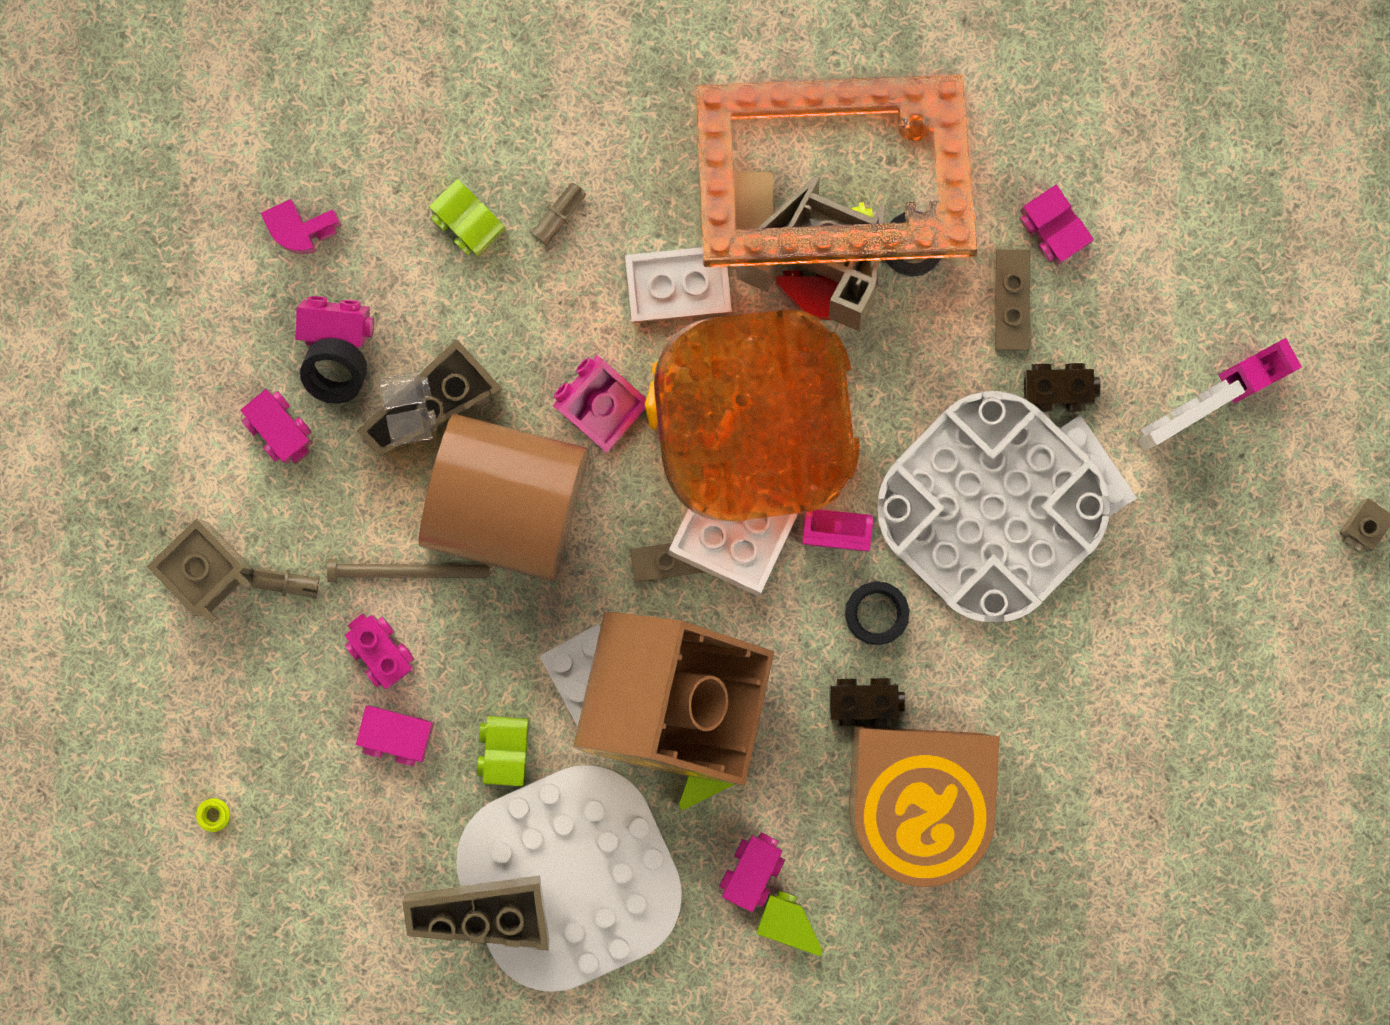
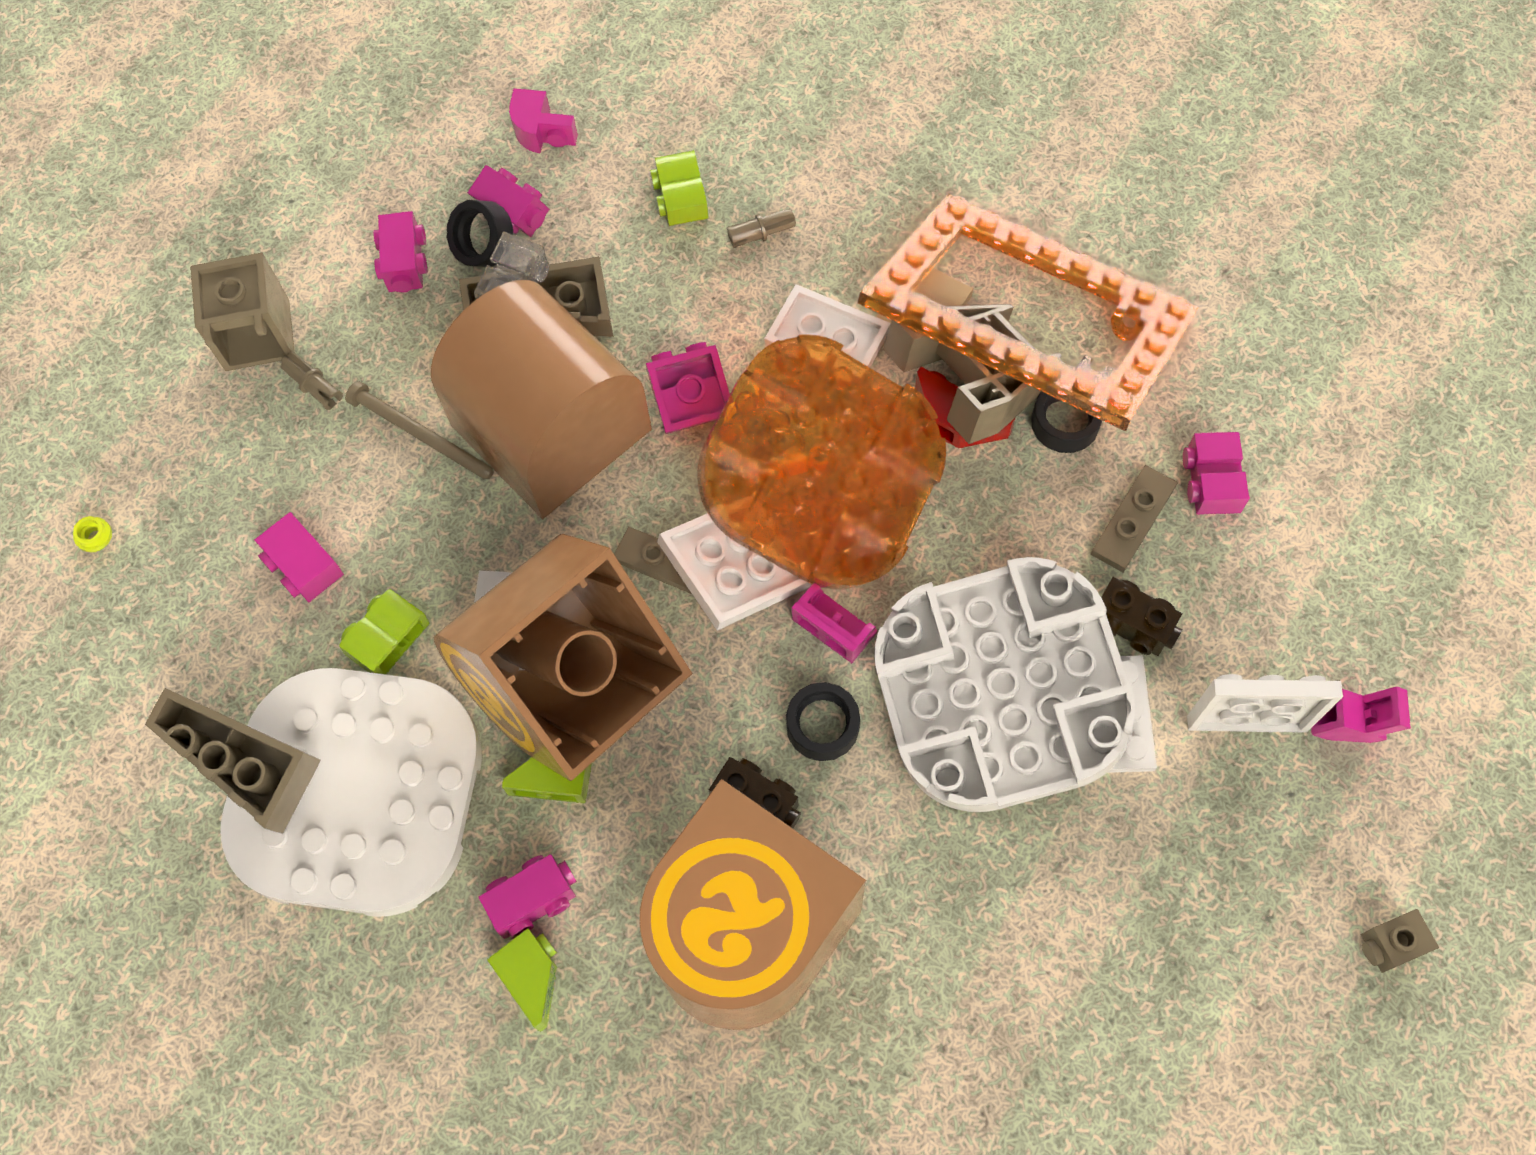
camera: 35 degrees right, 20 degrees down
(371, 641) = (341, 480): dark pink brick -> none

